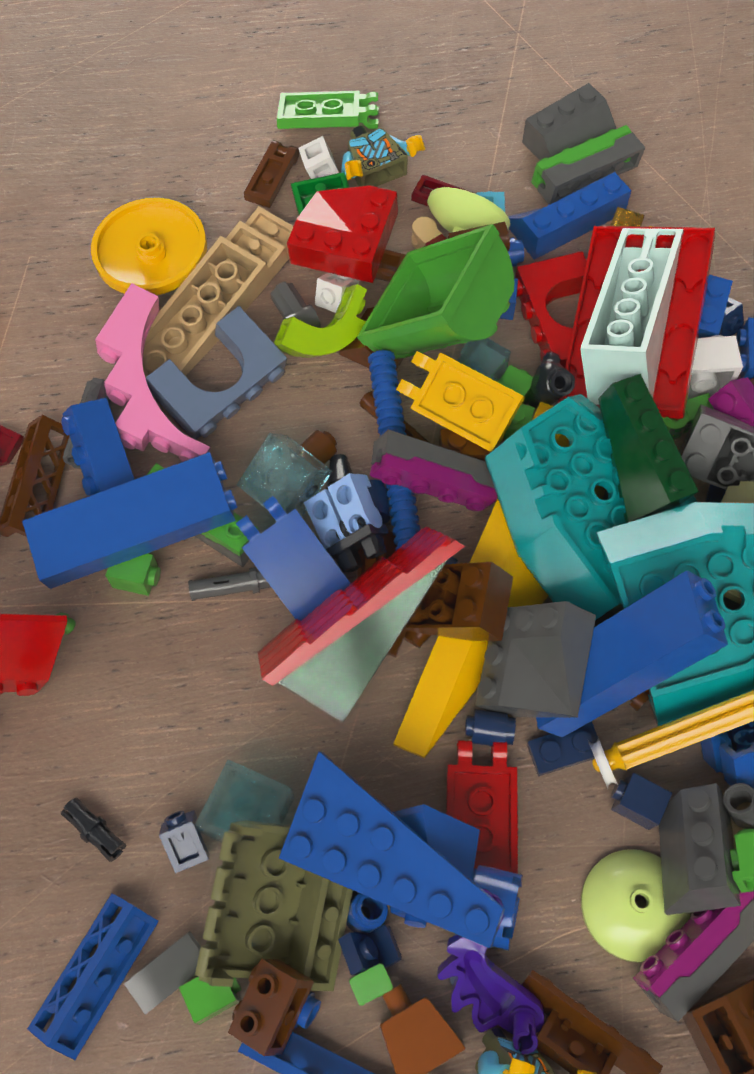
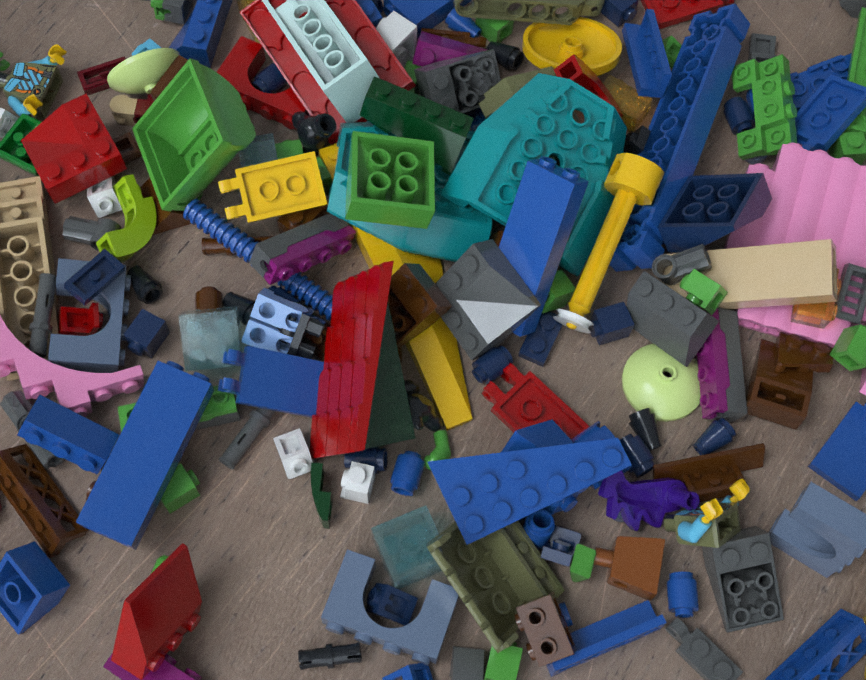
camera: 50 degrees left, 0 degrees up
(143, 808) = (420, 638): none -> sand blue arch
(184, 341) = (41, 325): none -> dark grey pin
(209, 371) = (80, 320): none -> red bracket
(223, 699) = (322, 500): none -> dark green slope
(244, 428) = (146, 334): none -> dark blue brick
(247, 344) = (94, 277): none -> dark blue plate
(248, 635) = (293, 453): none -> white bracket
(269, 712) = (358, 482): none -> white brick
(287, 389) = (145, 286): none -> black cone
(298, 707) = (372, 456): none -> dark blue cone
(315, 740) = (407, 473): none -> blue brick
(364, 758) = (442, 448): none -> bright green arm
(383, 699) = (421, 409): none -> black animal
(530, 943) = (638, 454): none -> dark blue brick
(555, 476) = (390, 180): none -> bright green slope
(563, 309) = (269, 80): none -> dark blue brick
(567, 930) = (645, 425): none -> black cone
(620, 722) = (559, 293): none -> bright green brick
(624, 1008) = (716, 436): none -> dark blue cone

